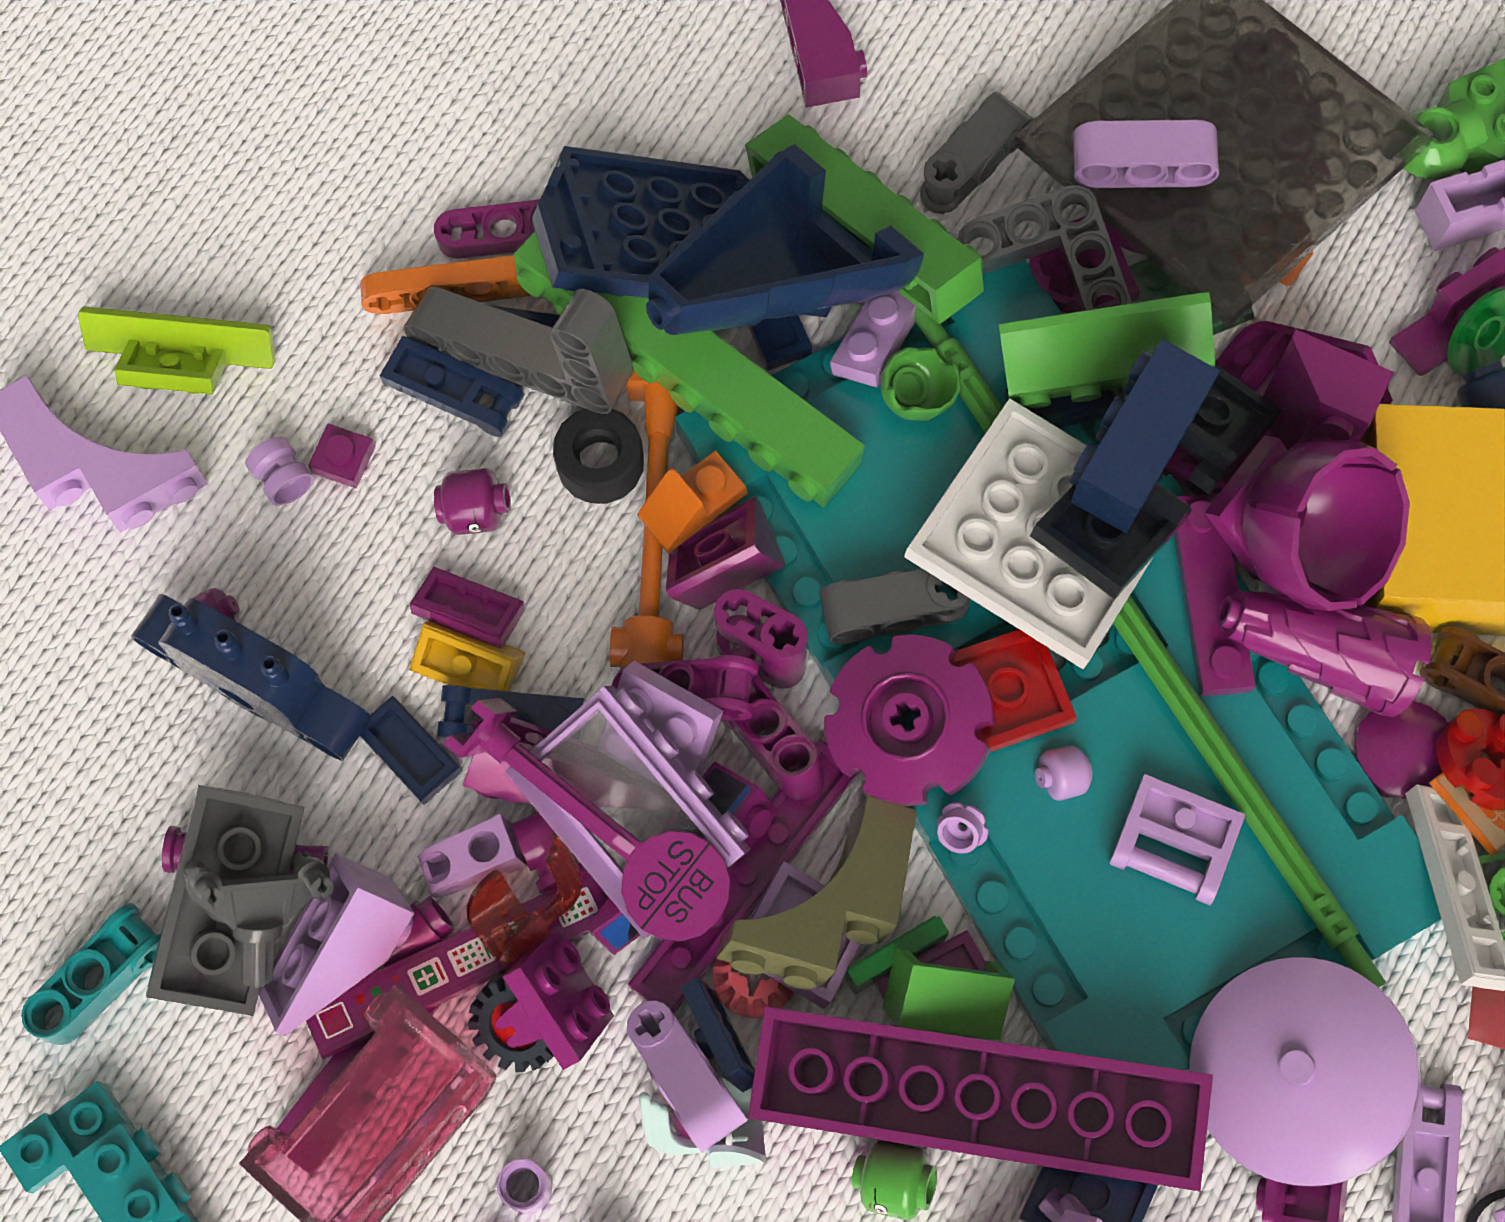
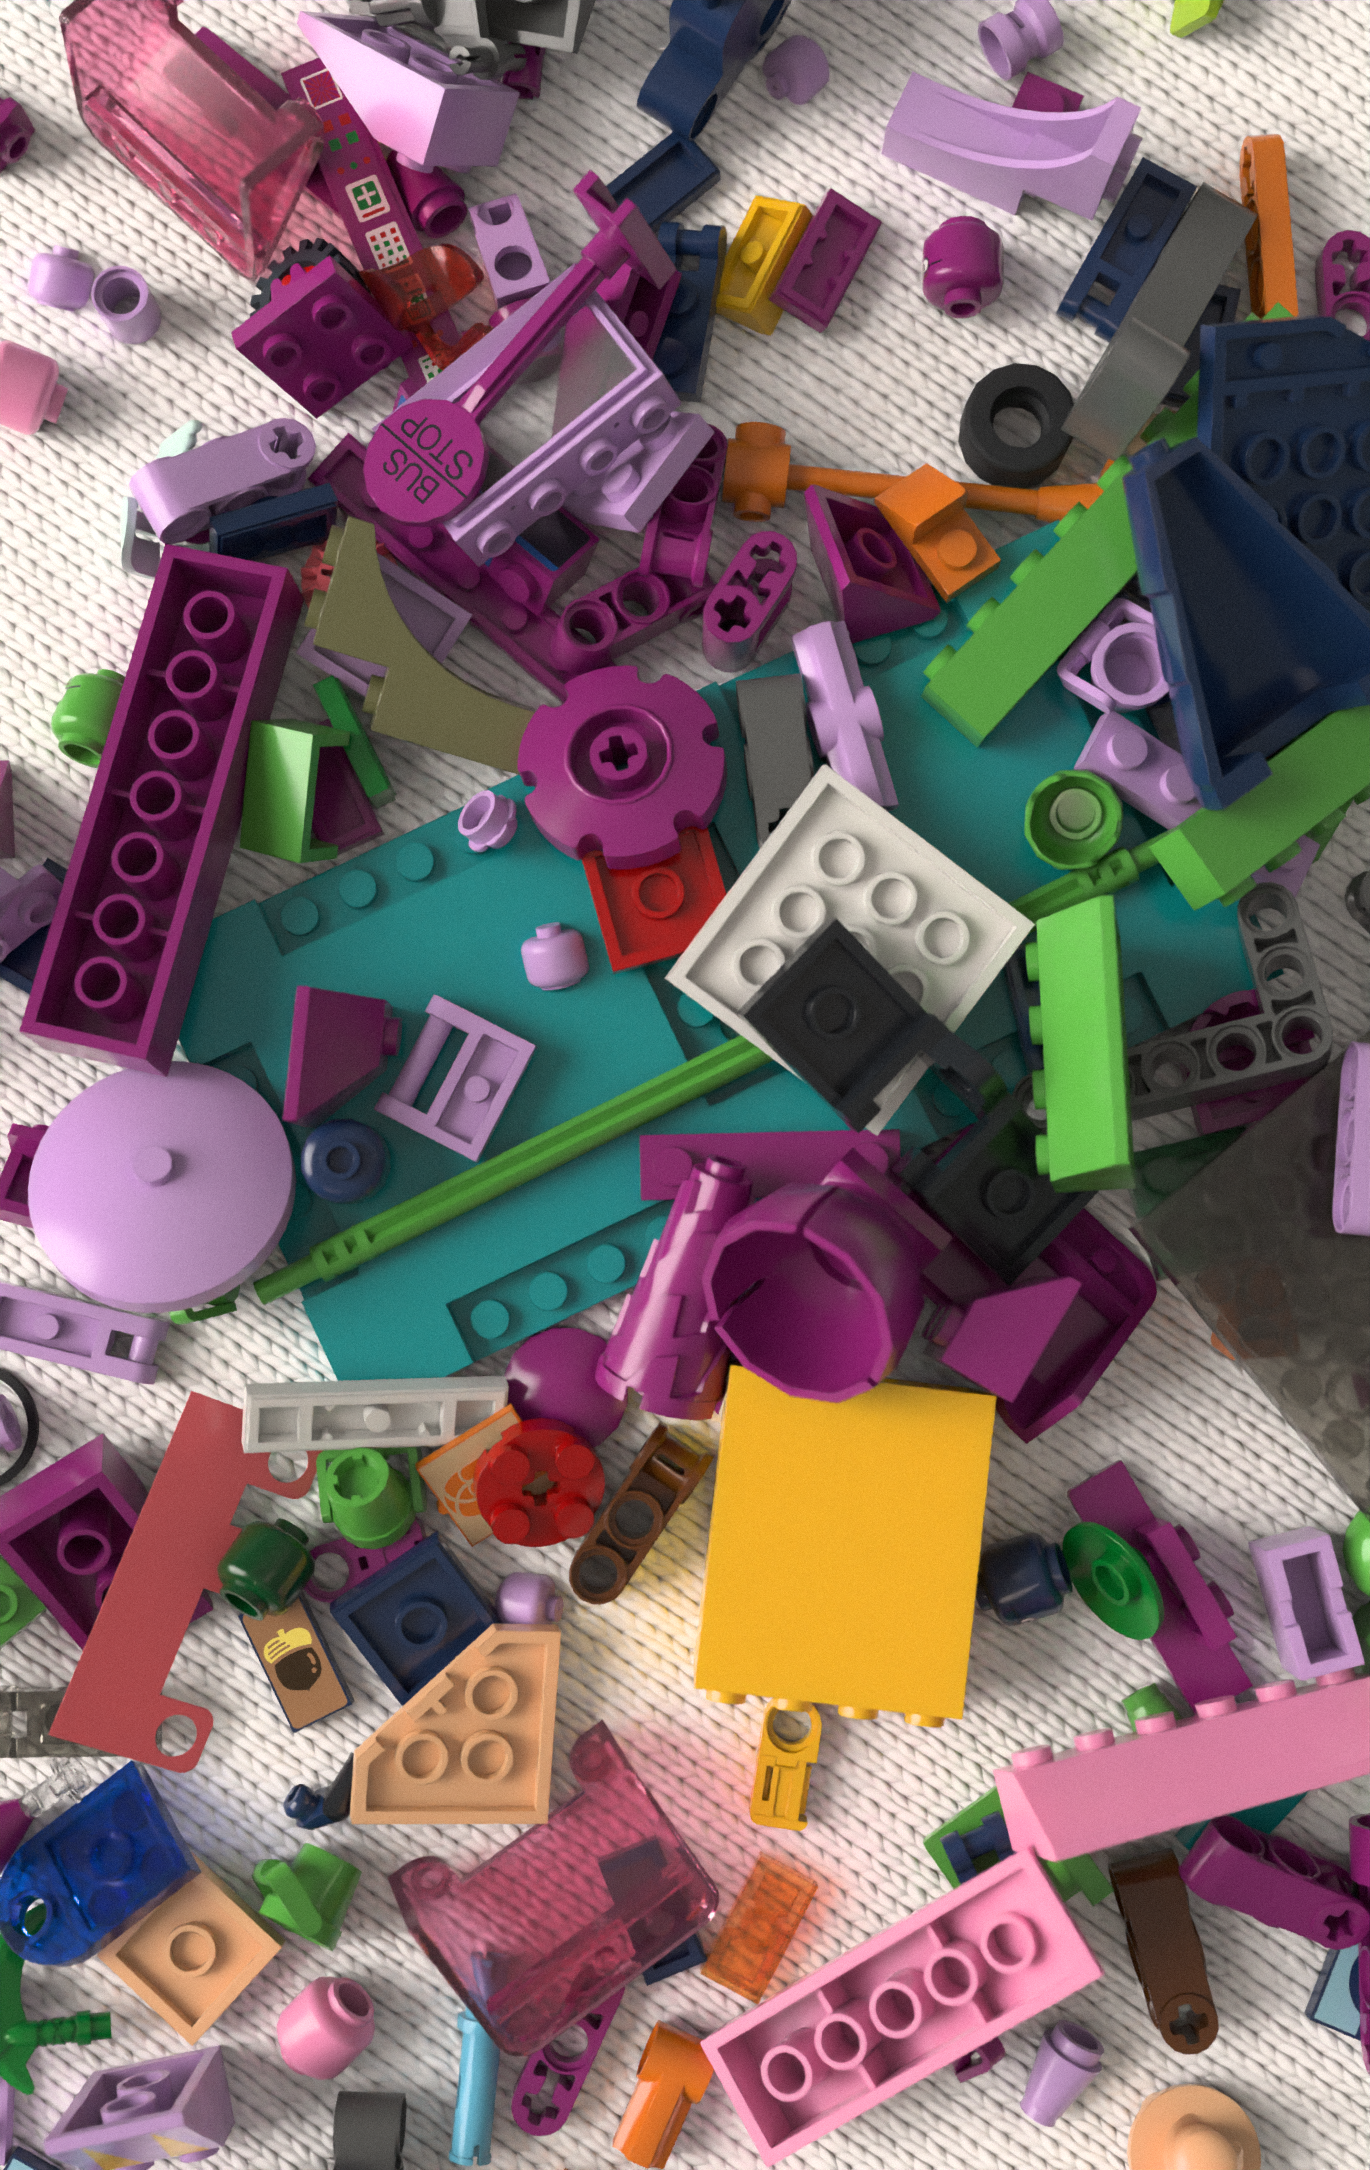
camera: 90 degrees right, 15 degrees up
(305, 641) = (796, 70): none -> lavender piece
(382, 463) = (1012, 151): none -> lavender arch
(799, 350) = (1123, 662): none -> lavender piece
(848, 555) = (843, 711): none -> lavender piece
(1140, 434) = (927, 1046): dark blue brick -> none
(1175, 931) = (335, 1051): none -> magenta slope
(1262, 918) = (345, 1161): none -> dark blue head

